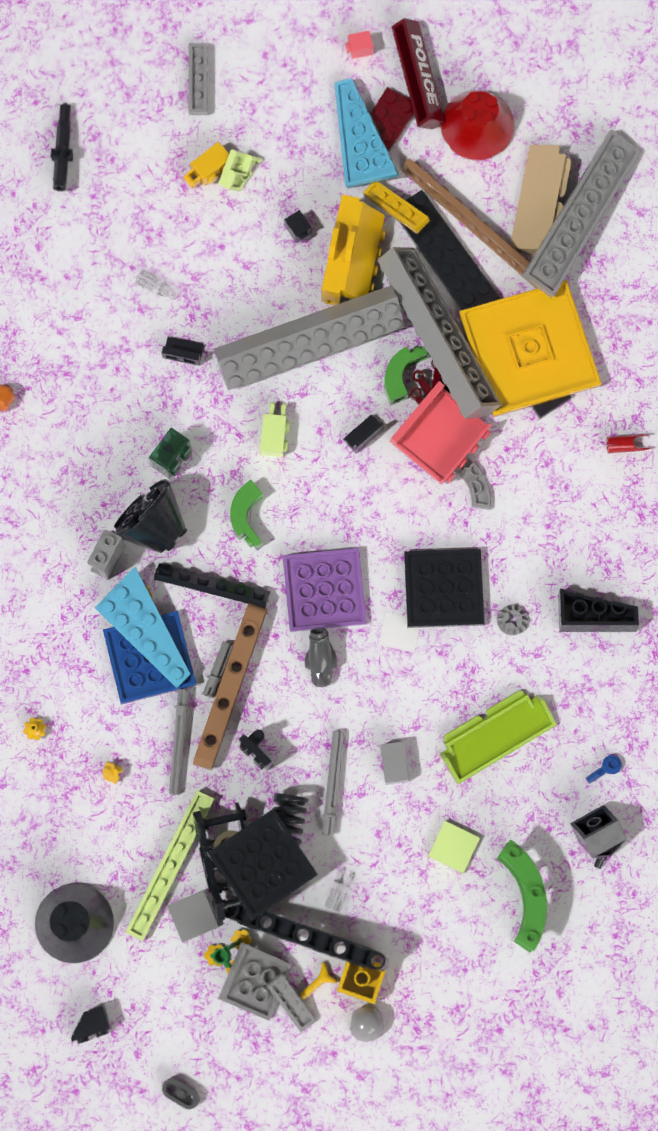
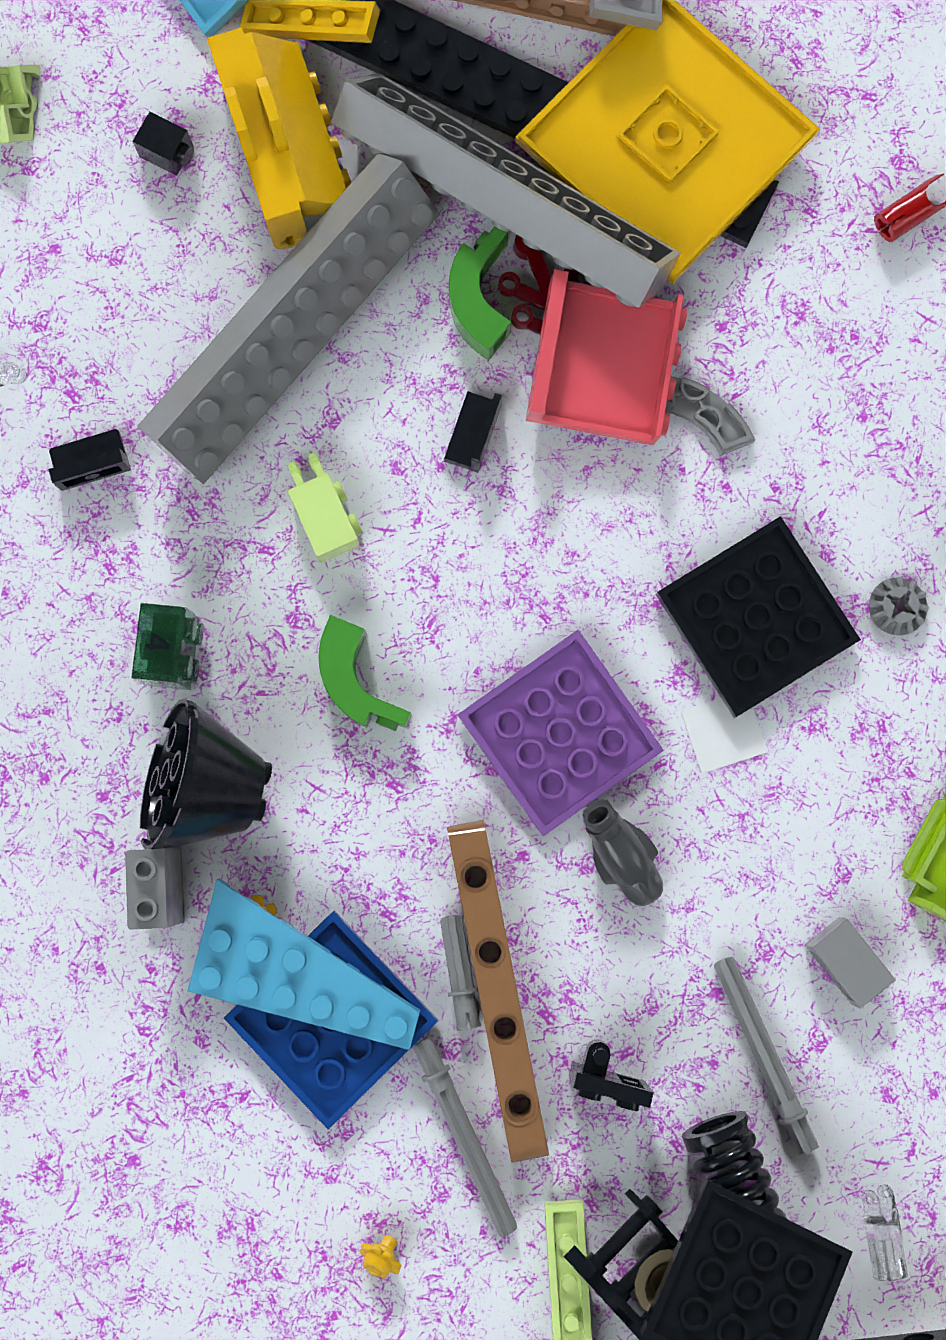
camera: 30 degrees left, 5 degrees up
(34, 728) = (204, 1258): yellow plant -> none
(211, 585) = (365, 833): black plate -> none

